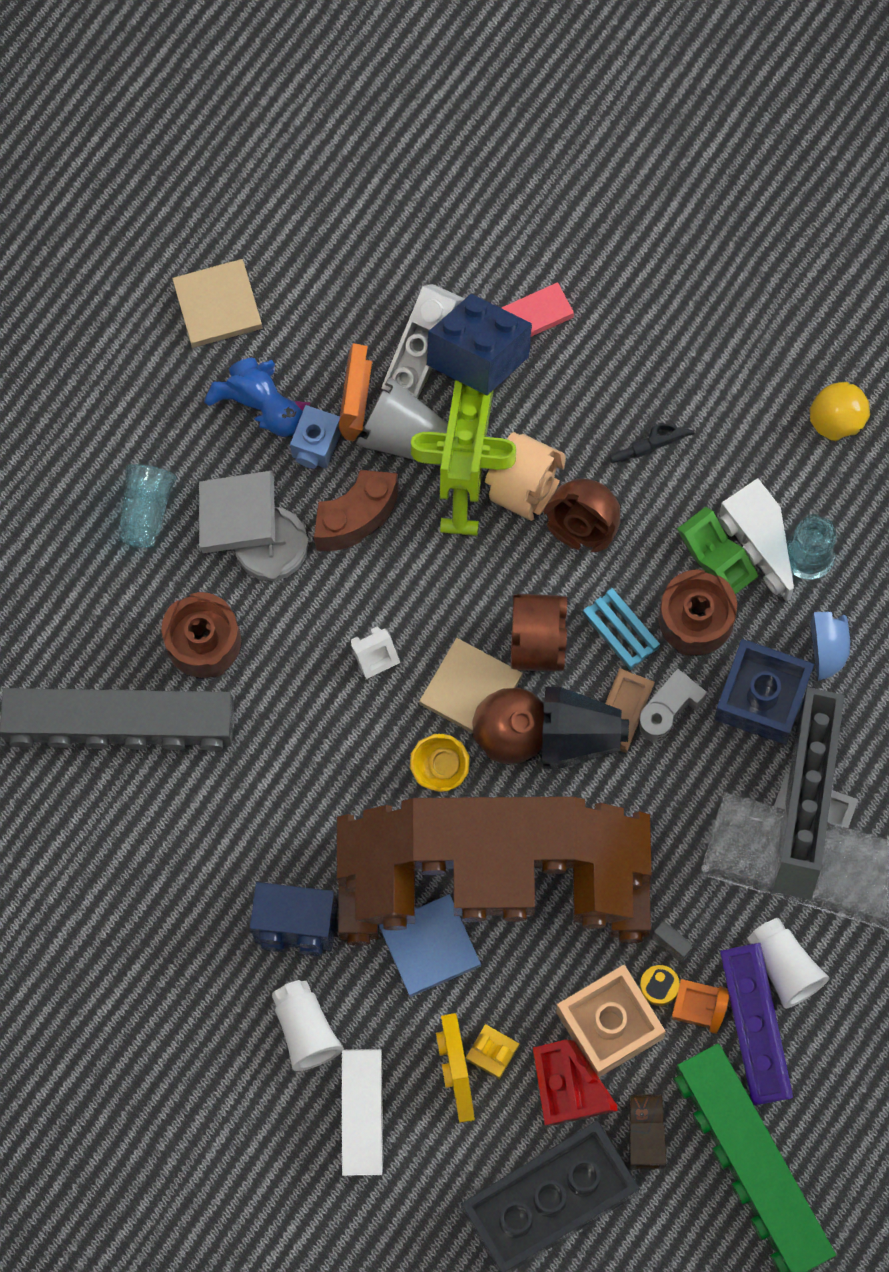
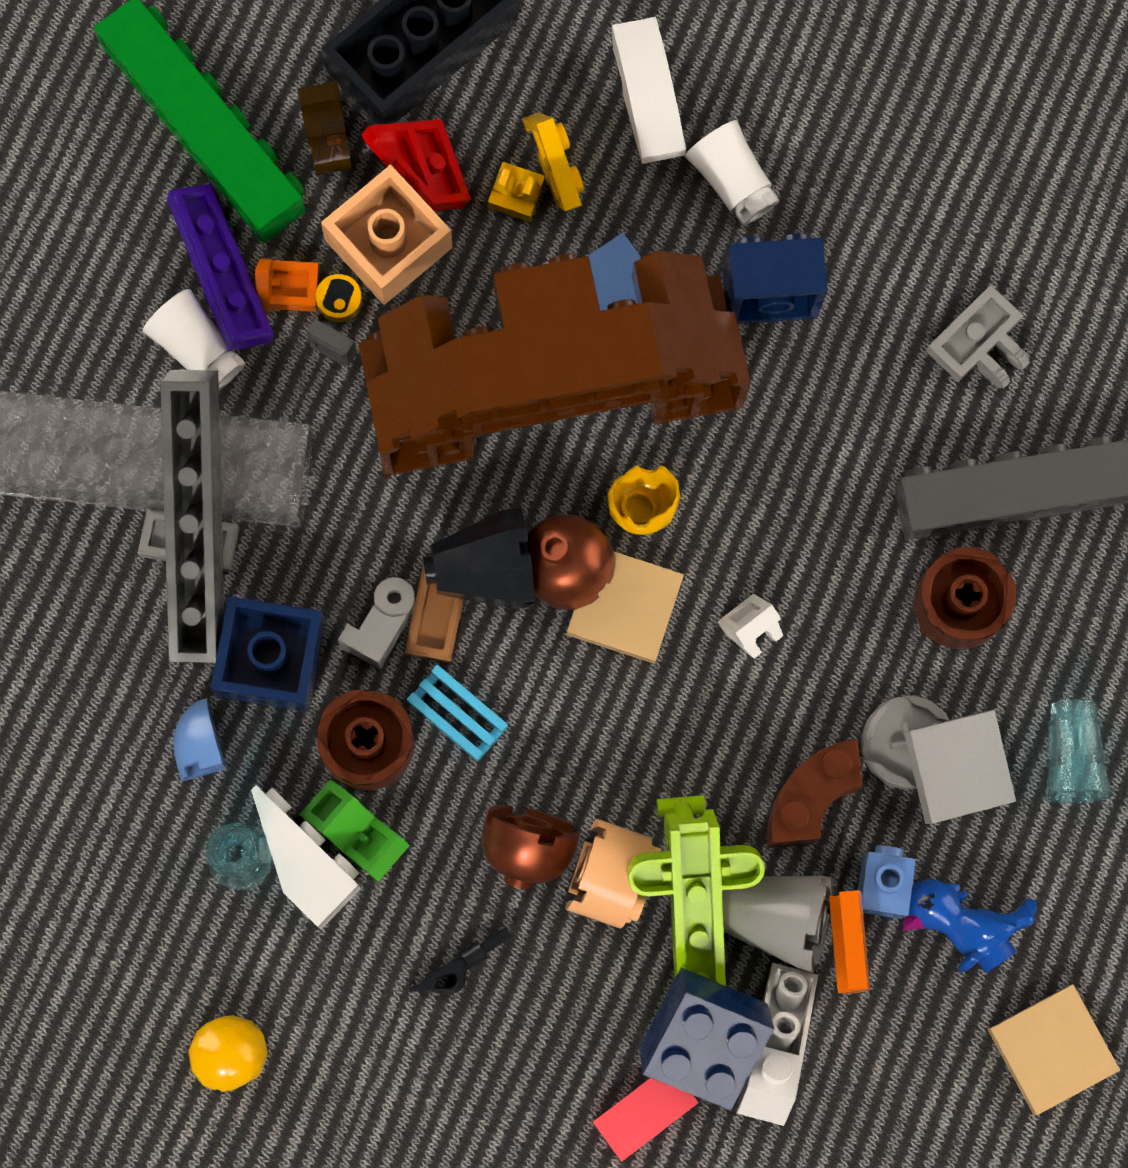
camera: 160 degrees right, 5 degrees up
(135, 852) = (976, 334): none -> light grey hinge
(538, 632) = (558, 673): copper brick -> none

